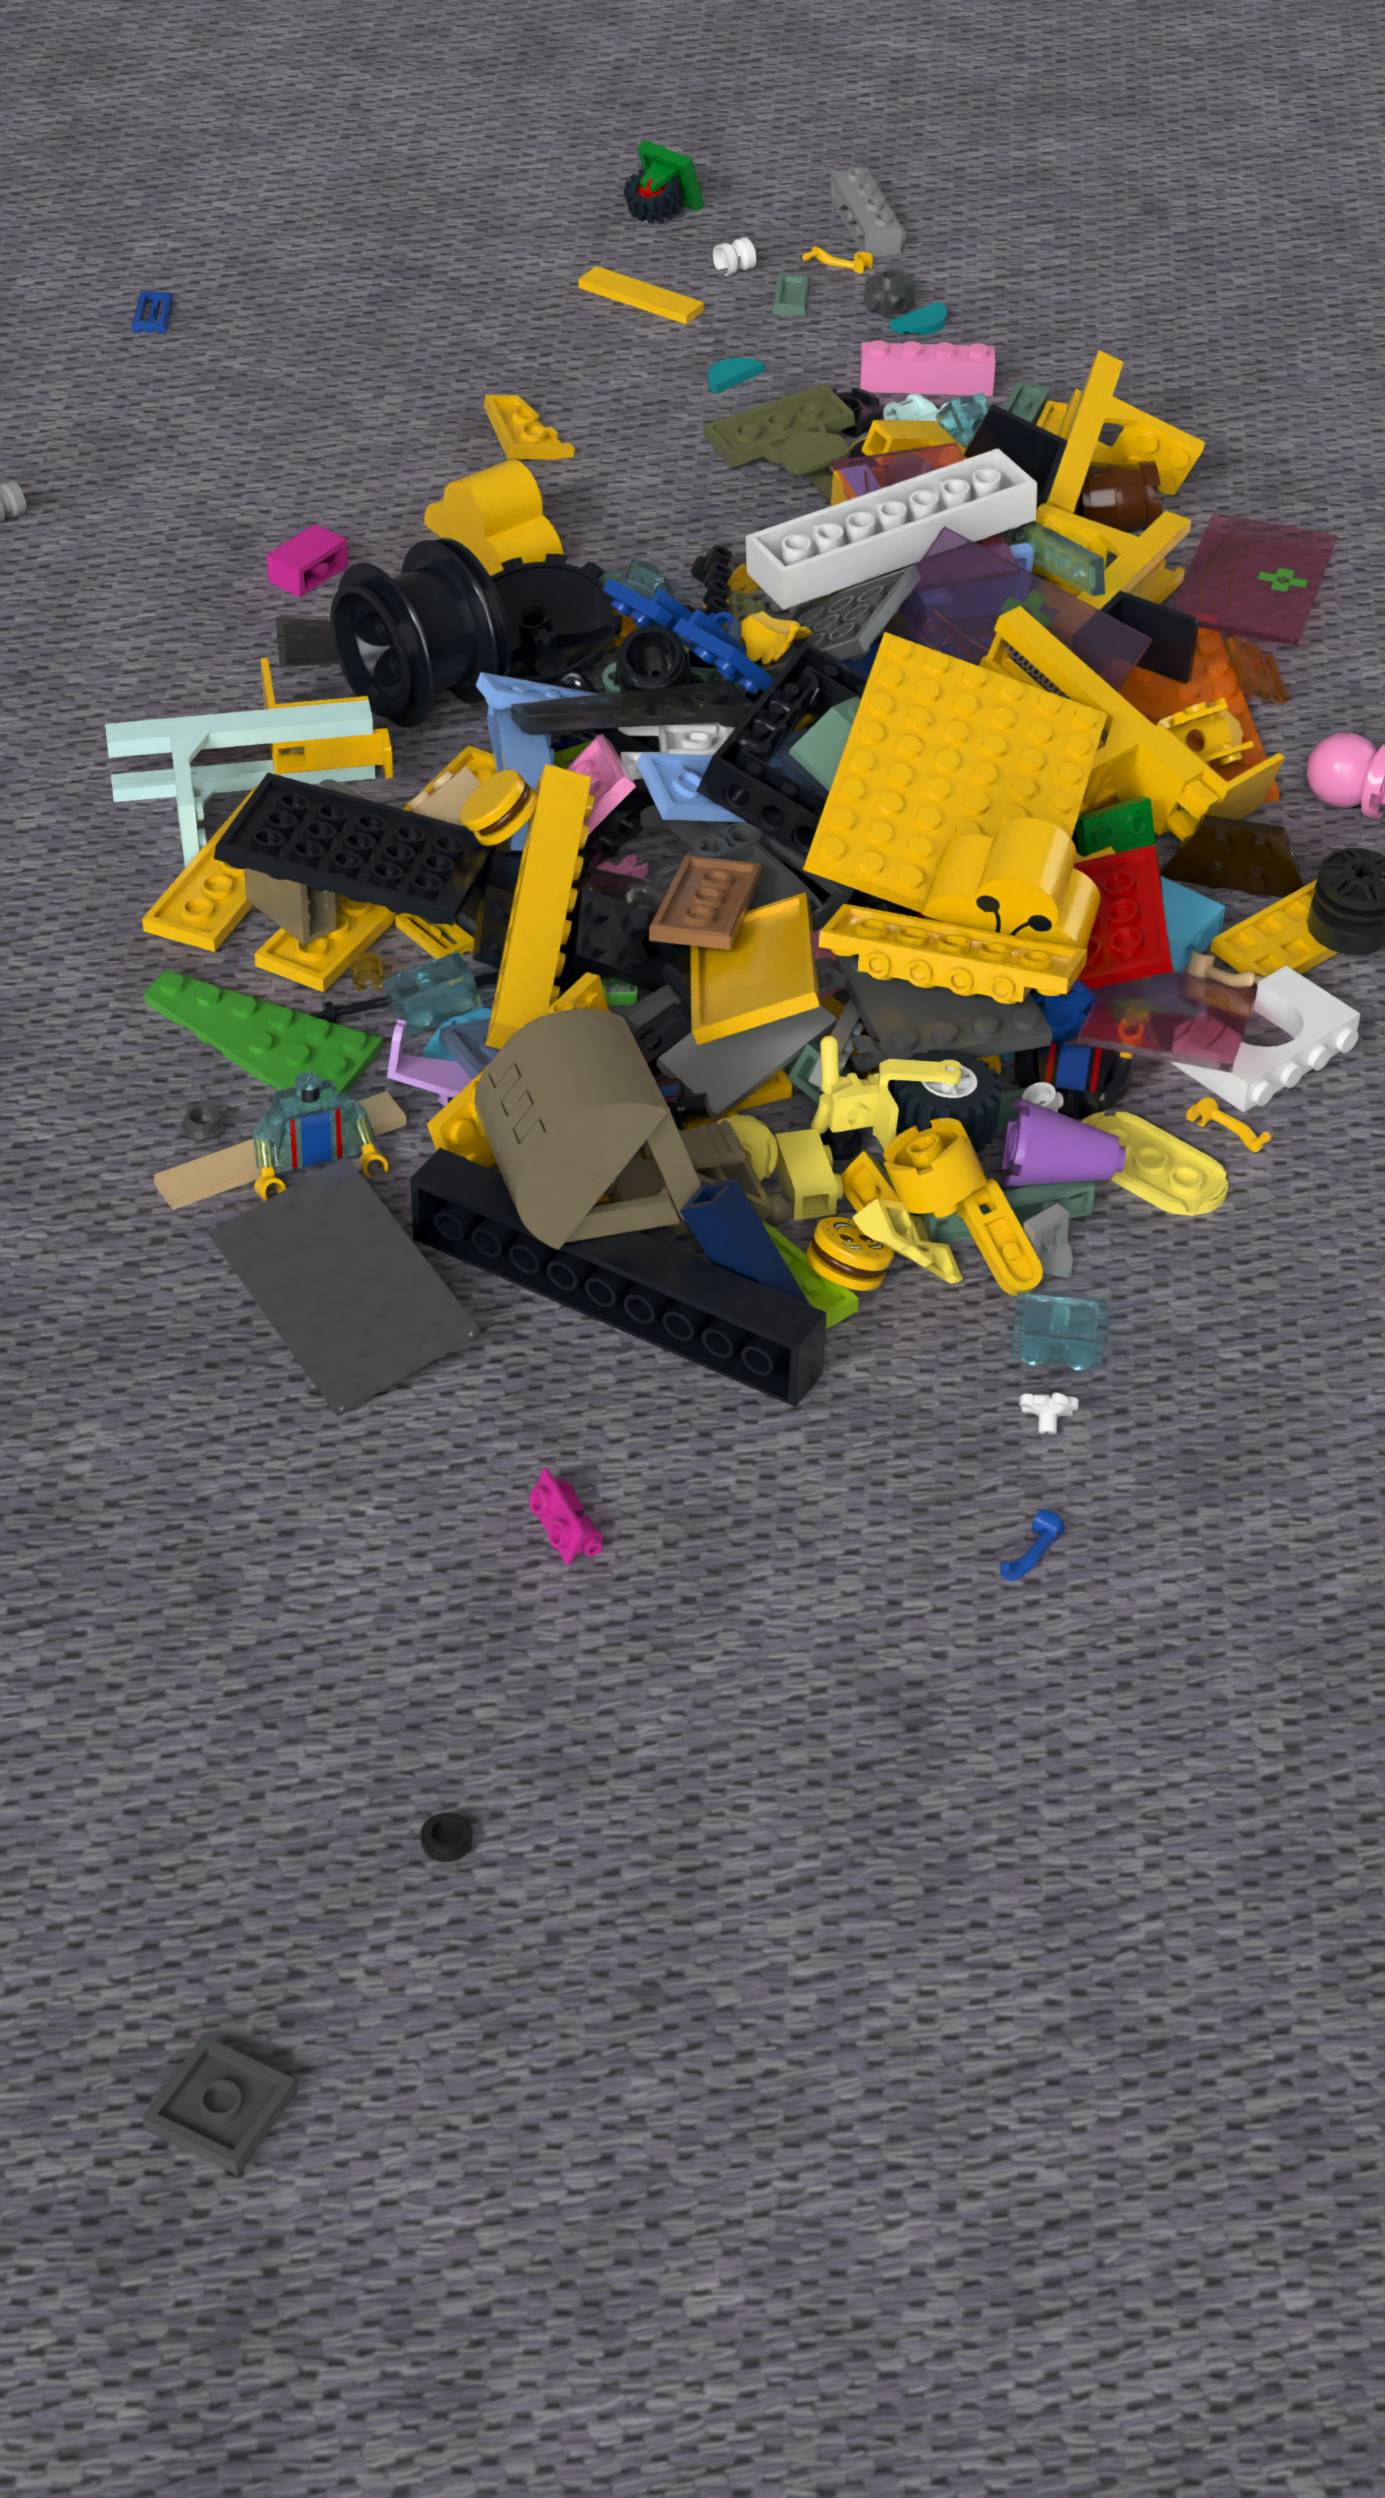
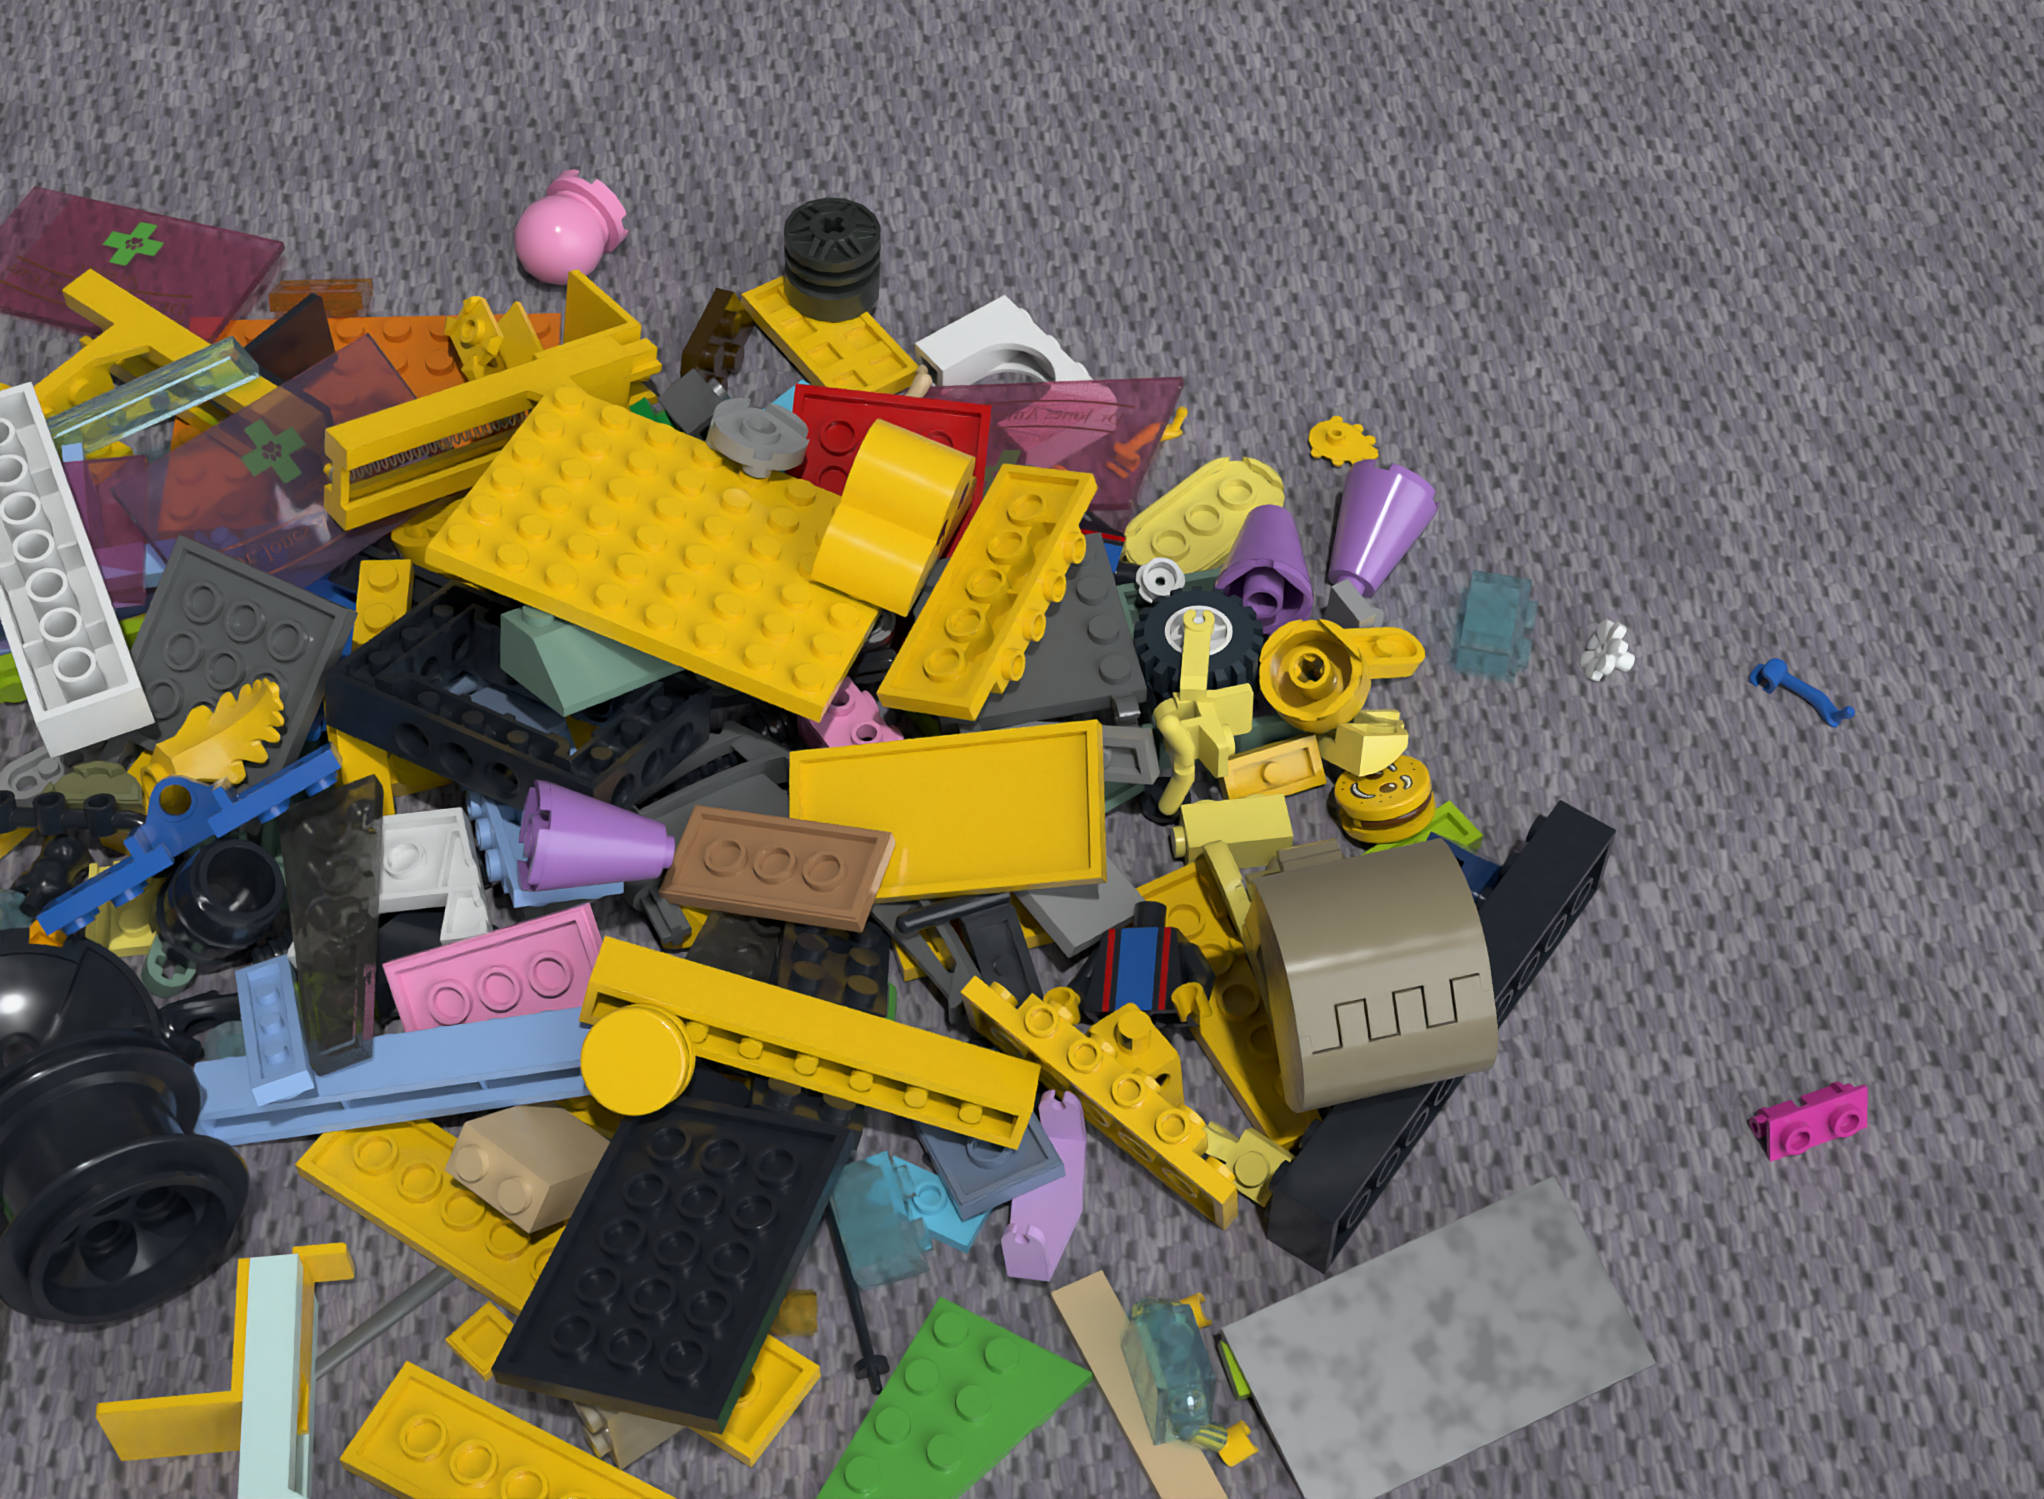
camera: 85 degrees left, 10 degrees up
(673, 761) = (586, 842): none -> medium lavender cone
(1093, 804) = (758, 437): none -> light grey plate
(1148, 1249) = (1378, 523): none -> medium lavender cone
(1160, 829) = (693, 402): none -> flat silver brick
(1267, 1248) = (1341, 442): none -> yellow piece

